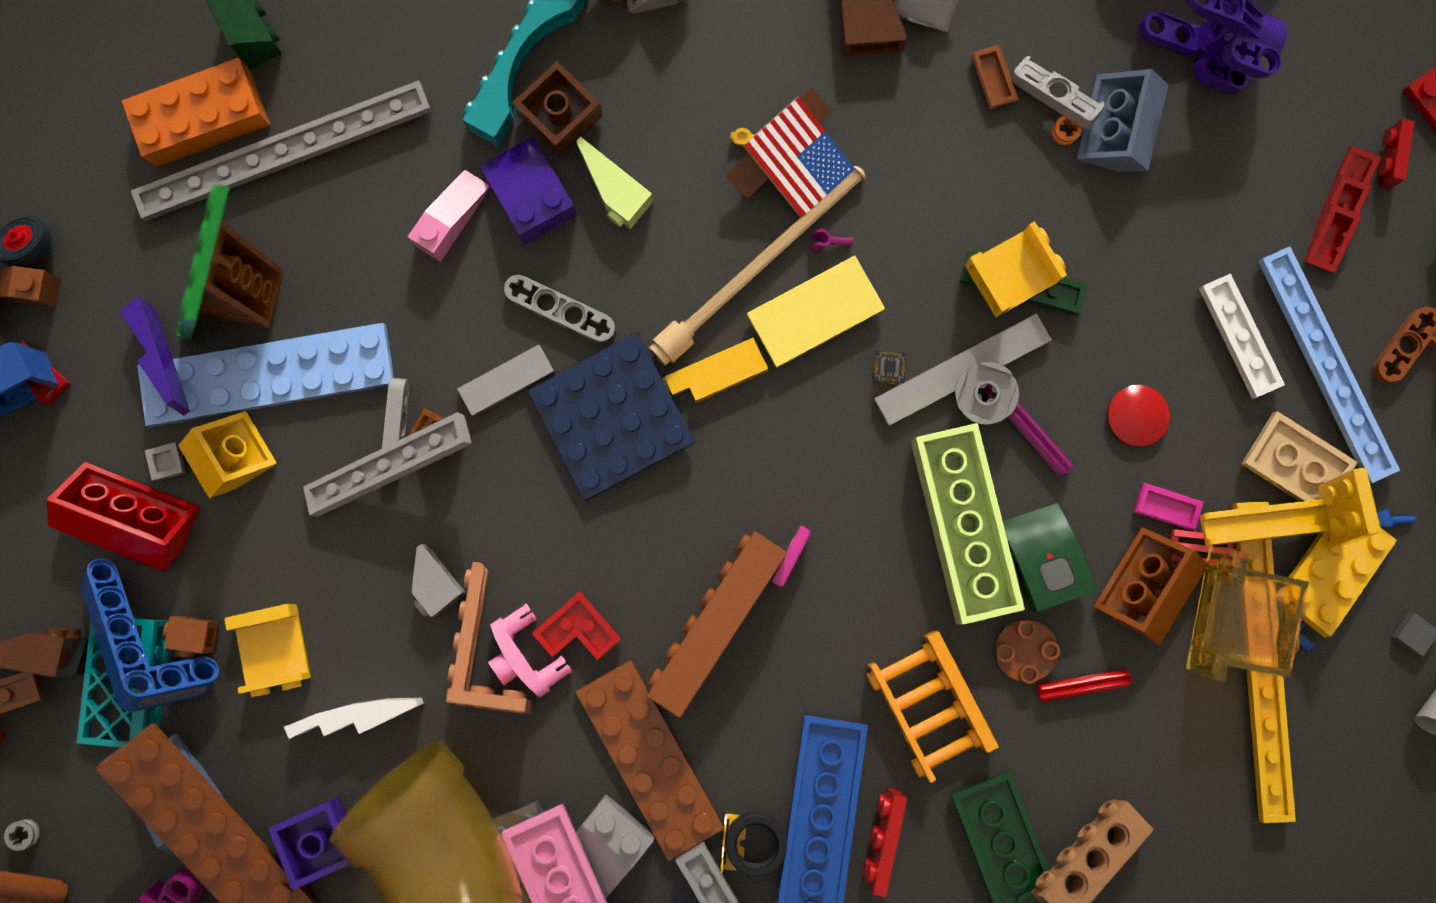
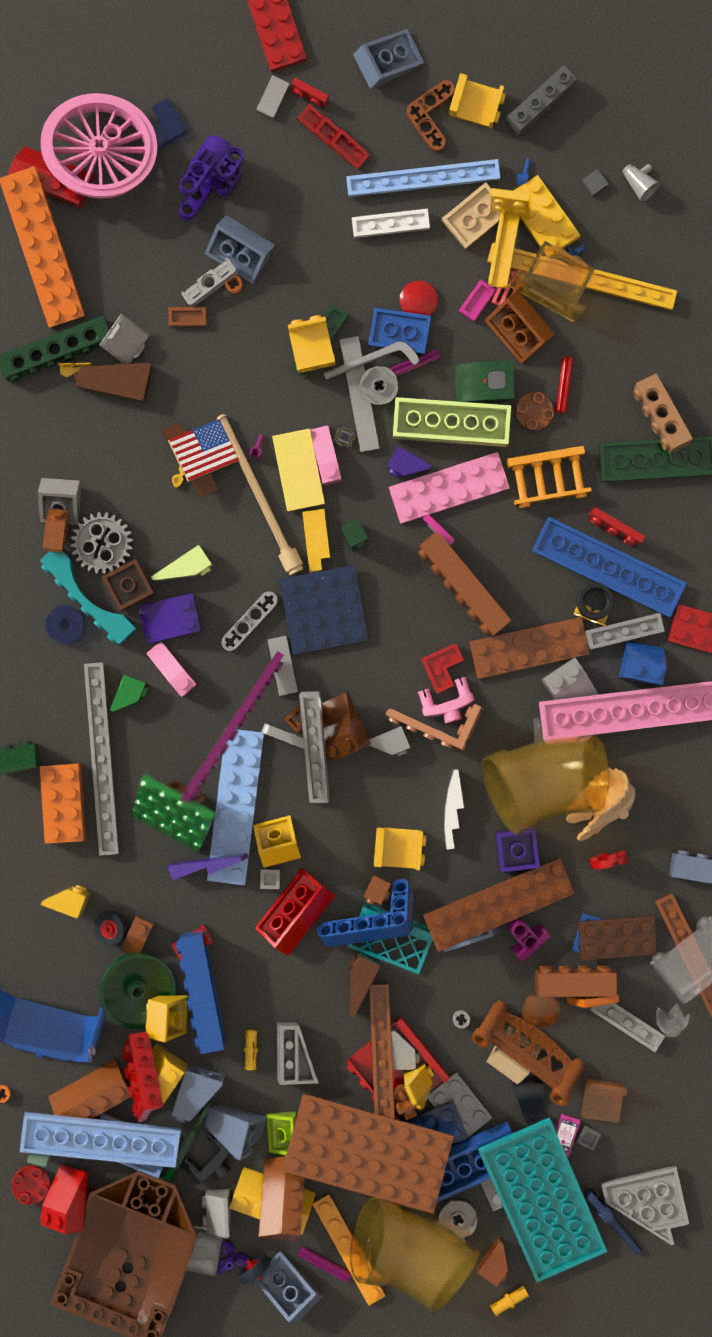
camera: 70 degrees left, 5 degrees up
(41, 163) = (70, 901): none -> yellow slope
(354, 316) = (231, 732): none -> magenta plate
(395, 159) = (129, 693): none -> green slope
(430, 500) = (342, 727): none -> reddish brown slope
(456, 30) = (56, 617): none -> clear blue plate
(616, 27) = (85, 536): none -> light grey gear
(741, 425) = (354, 535): none -> dark green brick
(850, 346) = (325, 455): none -> bright pink slope
(863, 553) = (449, 487): none -> bright pink plate
(877, 474) = (406, 464): none -> dark purple slope
(1055, 401) = (398, 346): none -> light grey piece
(1081, 400) = (399, 326): none -> blue plate
(1367, 103) = (273, 97): none -> light grey tile

